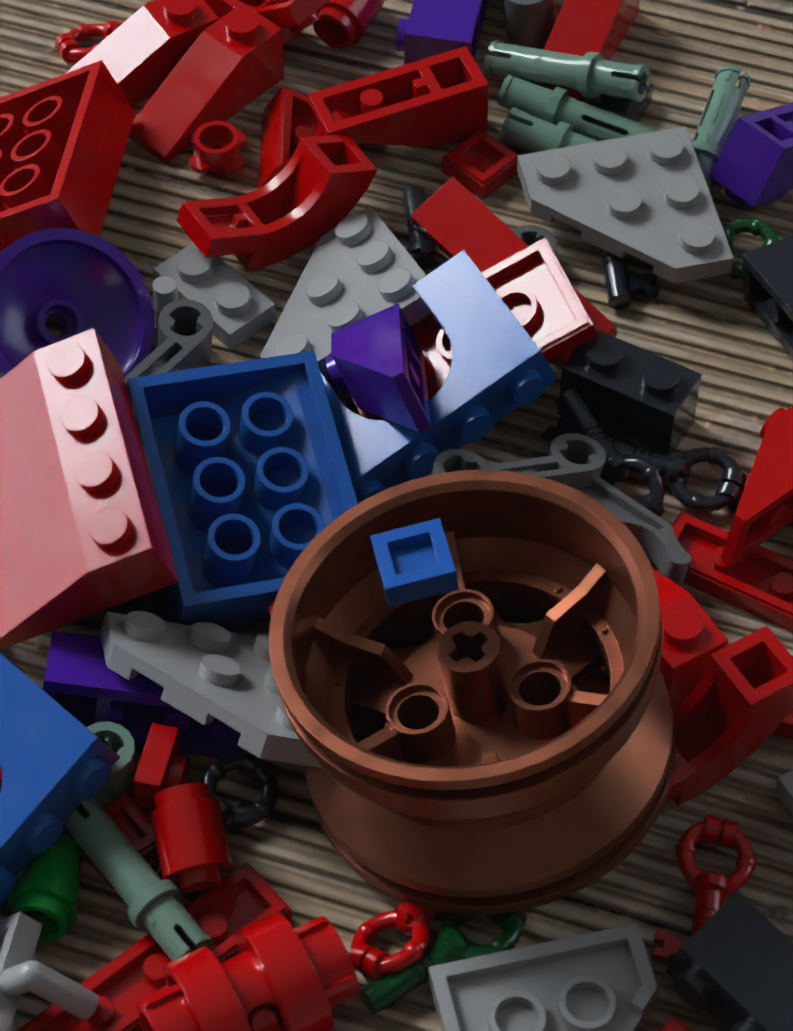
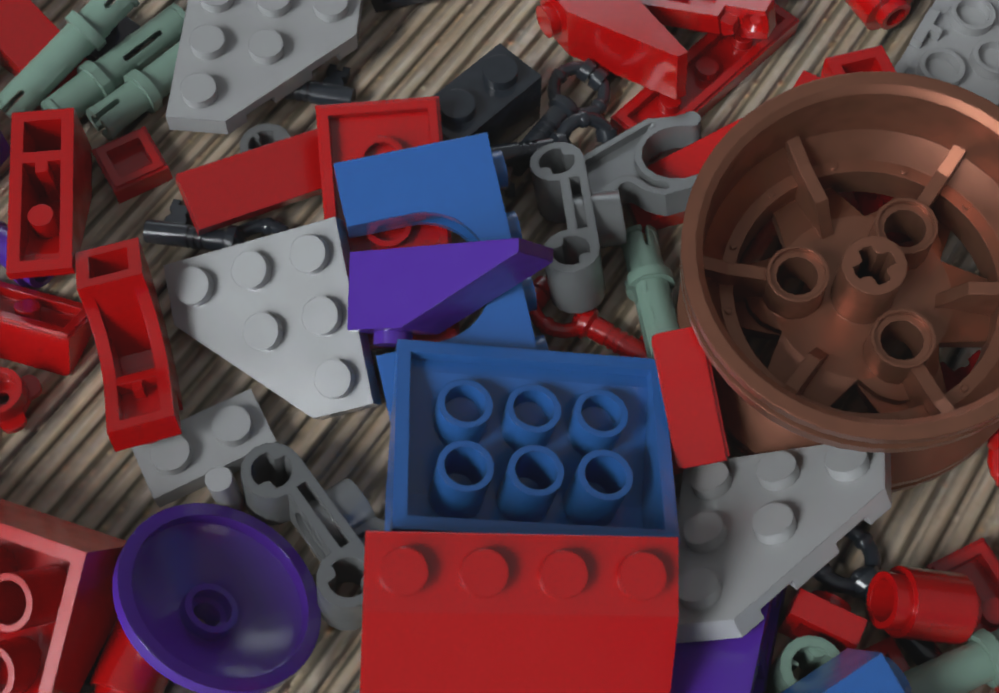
camera: 75 degrees left, 10 degrees up
(414, 562) = (824, 265): blue plate -> none

